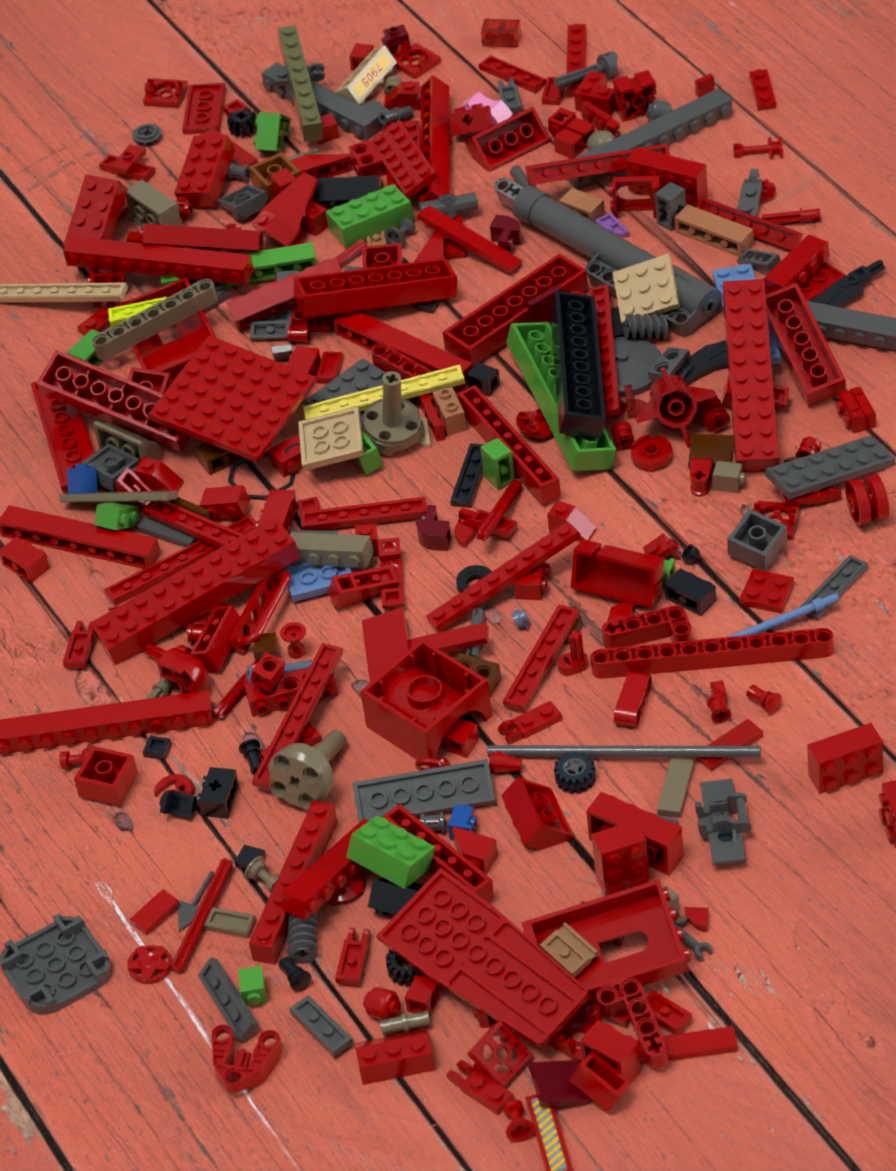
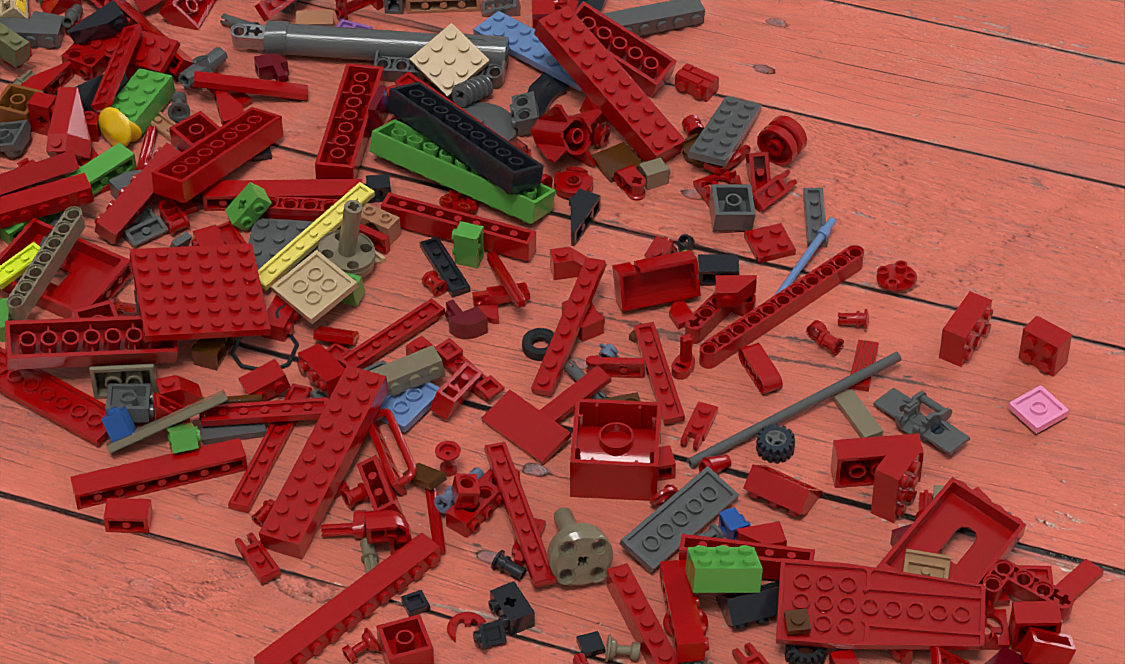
camera: 45 degrees left, 0 degrees up
(322, 491) = (336, 335): none -> red tile
(328, 232) = (118, 127): none -> yellow piece
(358, 345) = (248, 206): none -> bright green brick
(370, 172) = (116, 67): none -> red plate
(392, 130) = (100, 24): none -> black slope
(402, 930) = (797, 621): none -> reddish brown plate
(443, 488) = (434, 283): none -> red bush
(512, 633) = (617, 366): none -> red hinge
(624, 484) = (584, 209): none -> black slope
(668, 614) = (734, 289): none -> red slope
(816, 543) = (772, 191): none -> red hinge
(823, 519) = (758, 169): none -> red slope
(841, 869) = (1038, 409): none -> bright pink plate
(846, 679) = (896, 276): none -> red dish

